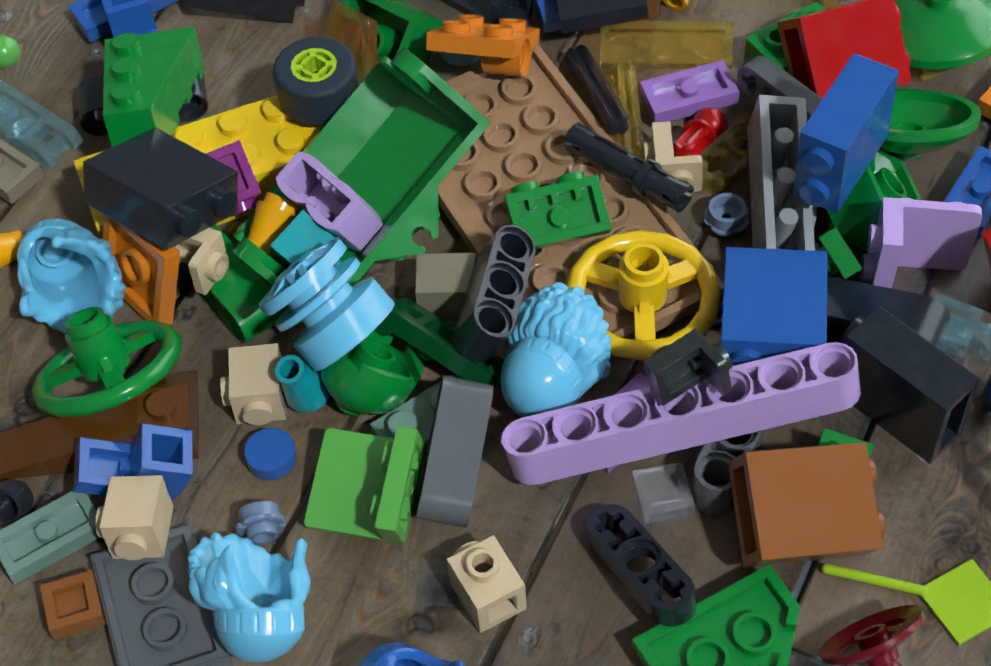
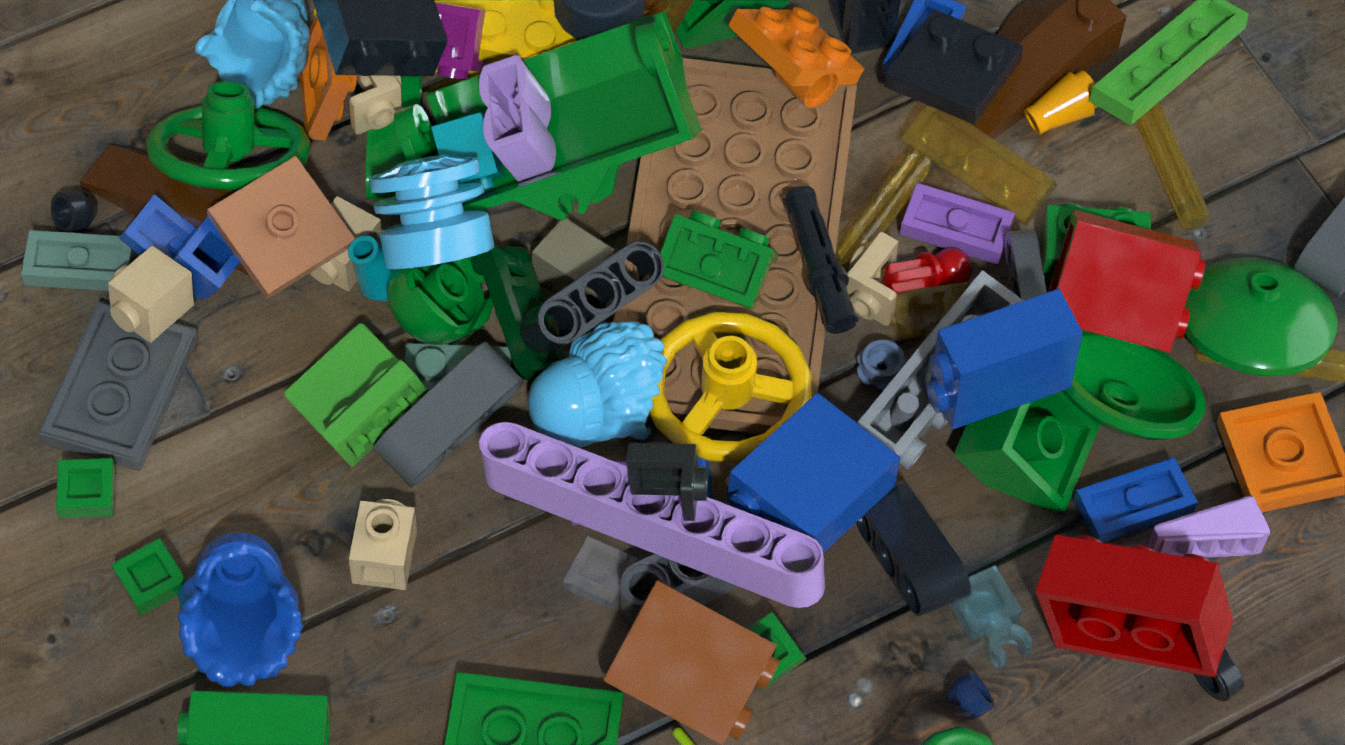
camera: 30 degrees right, 5 degrees up
(72, 605) = (52, 333): dark orange plate -> none
(208, 394) = (280, 227): none -> nougat plate
(251, 595) = (188, 419): medium azure hair -> none
(260, 522) = (250, 367): sand blue plate -> none
(270, 454) = (308, 313): blue tile -> none
(271, 219) = (458, 101): light orange cone -> none
(597, 90) = (871, 164): black axle -> none
(644, 584) = (527, 635): black beam -> none
(838, 253) = (934, 468): green plate -> none
(909, 384) = (874, 622): black brick -> none
(919, 237) = (1009, 489): lavender bracket -> none

